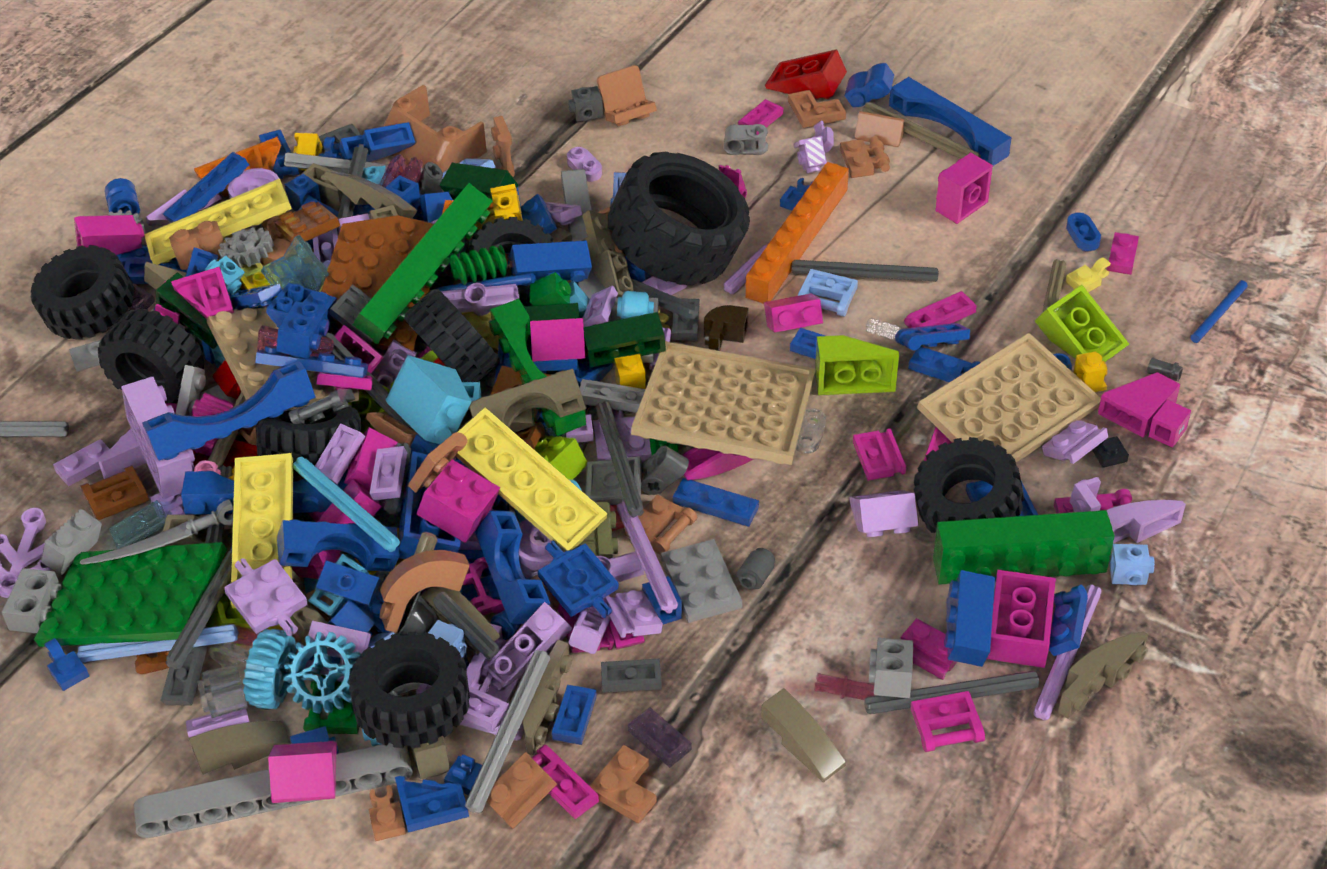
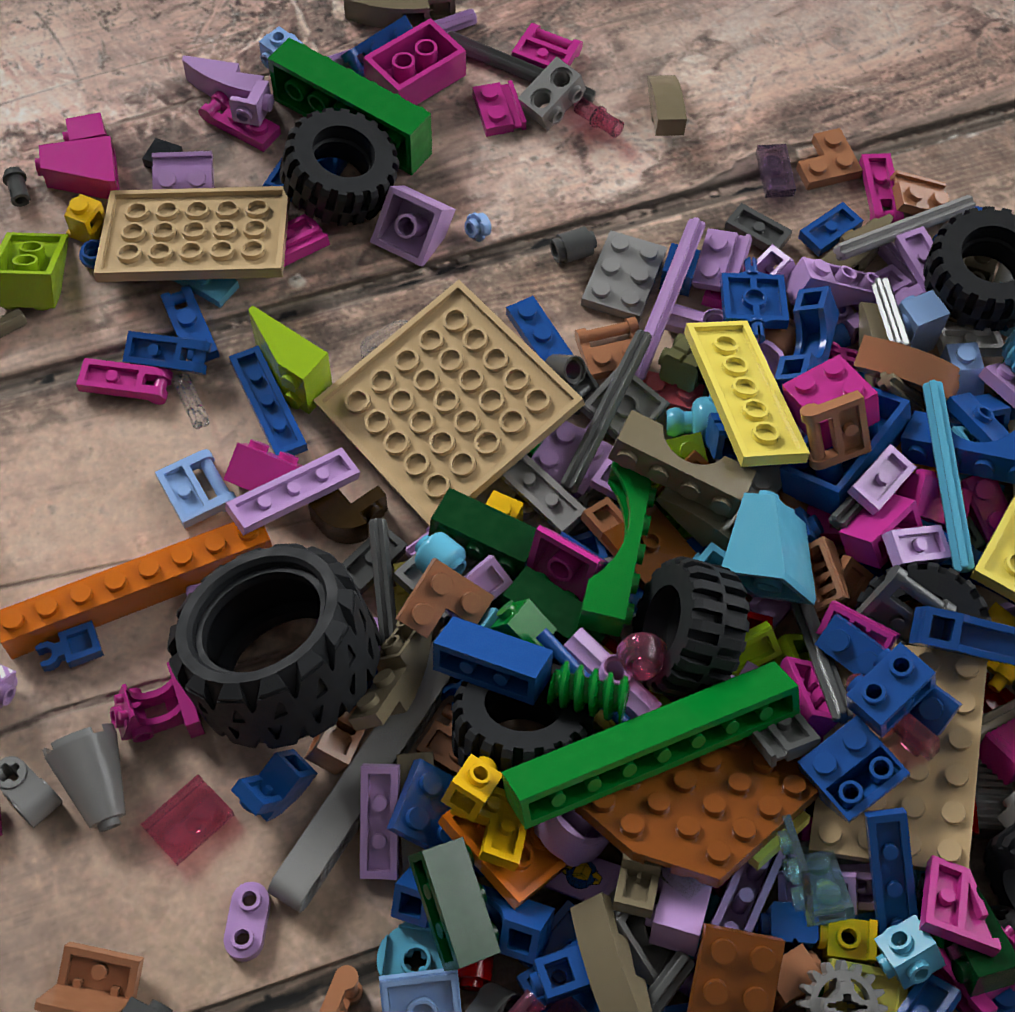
camera: 145 degrees left, 15 degrees up
(464, 295) = (642, 655): none -> clear pink cone
(615, 279) = (441, 590): none -> nougat plate
(723, 150) = (91, 774): none -> light grey cone
(757, 295) = (292, 491): none -> lavender plate
(838, 539) = (477, 226): none -> light blue plate
(867, 270) = (121, 486): dark grey axle -> none
(879, 454) = (355, 278): dark pink plate -> none
(969, 618) = (460, 79): blue wedge -> none

